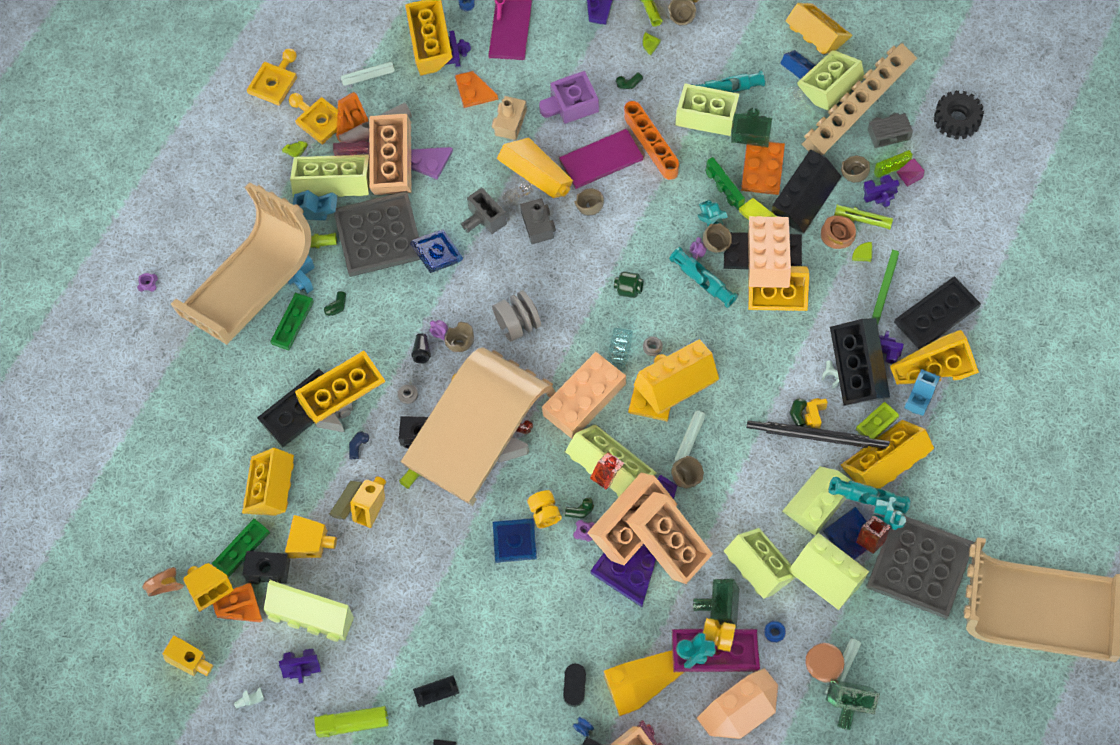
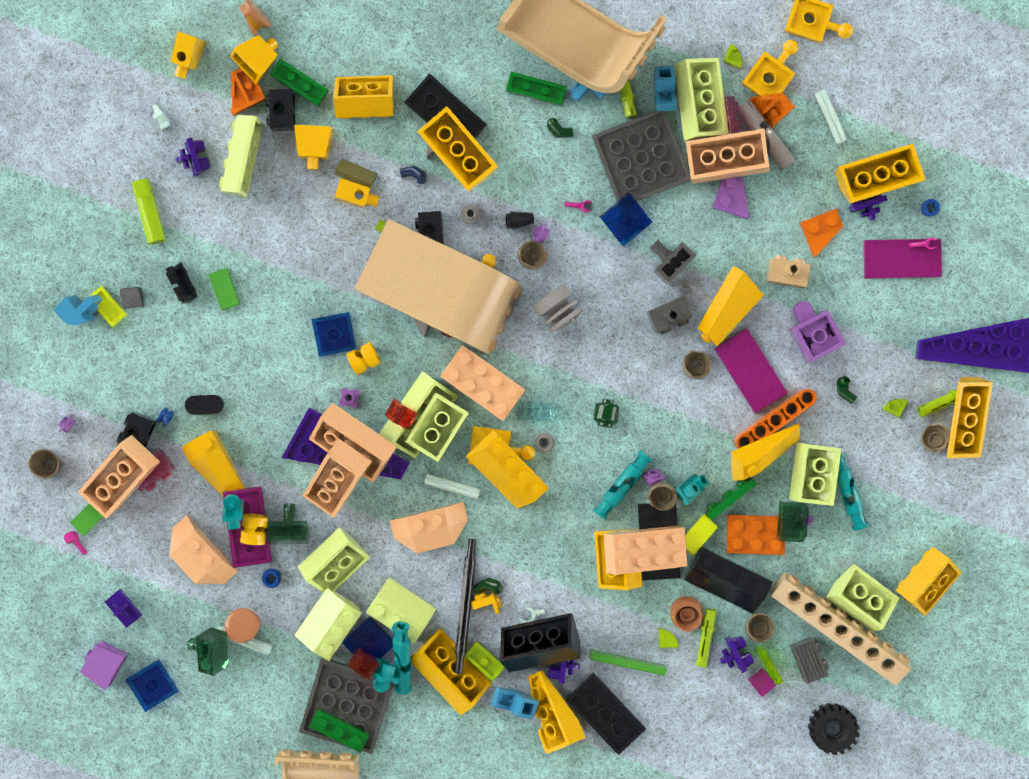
camera: 80 degrees right, 25 degrees up
(416, 291) = (578, 205): none -> dark pink hand
(449, 650) = (224, 289): none -> bright green tile
(582, 511) = (369, 393): dark green arm -> none
(626, 439) = (437, 427): none -> yellowish green slope
(685, 154) = (760, 454): none -> yellow wedge
(687, 472) = (413, 487): dark tan hair -> none
(732, 464) = (430, 528): none -> light nougat wedge
(796, 63) = (882, 563): blue slope -> none
(946, 571) = (339, 730): none -> green plate

